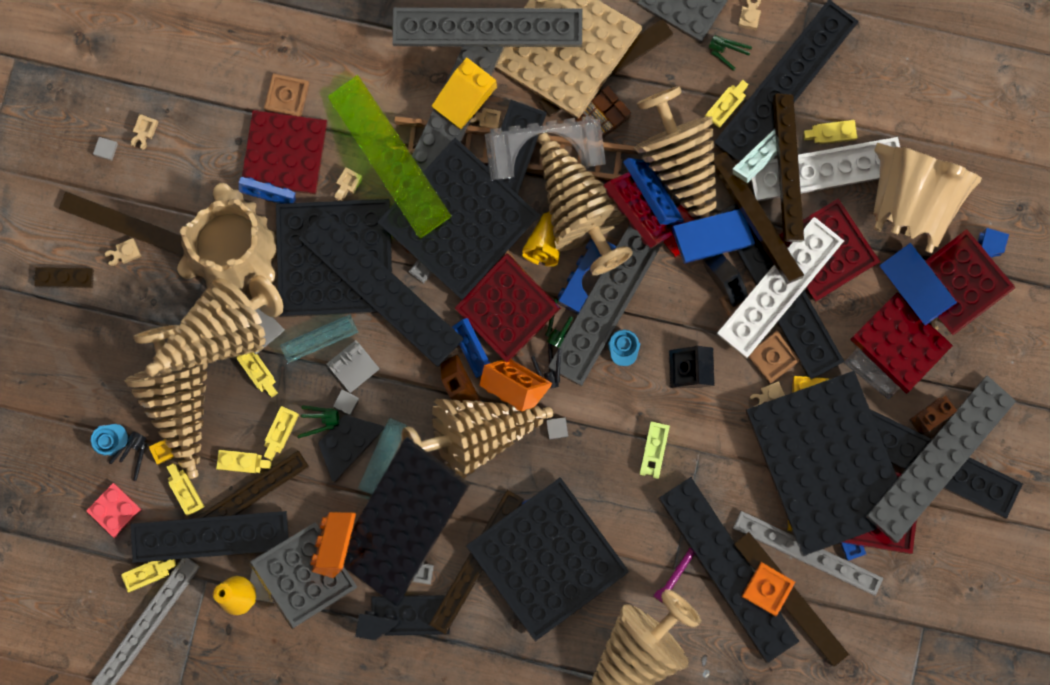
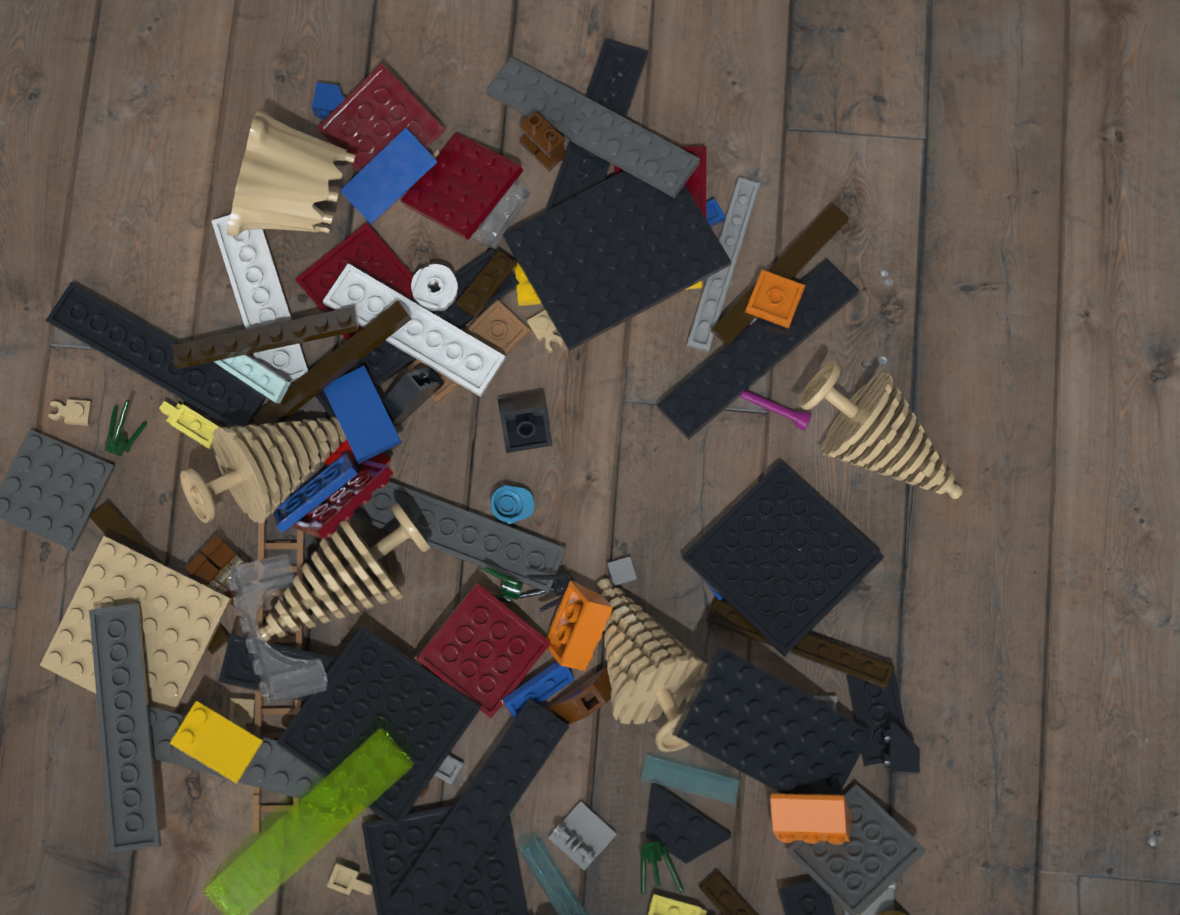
camera: 105 degrees left, 5 degrees down
(346, 402) = (629, 837): light grey tile -> none
(541, 244) = (393, 619): yellow cone -> none
(574, 295) = (454, 573): blue arch -> none
(654, 449) = (630, 452): yellowish green plate -> none
(812, 351) = (486, 284): none -> dark brown plate
(824, 304) = (428, 276): none -> white plate
(832, 132) = (213, 297): light yellow hinge -> none

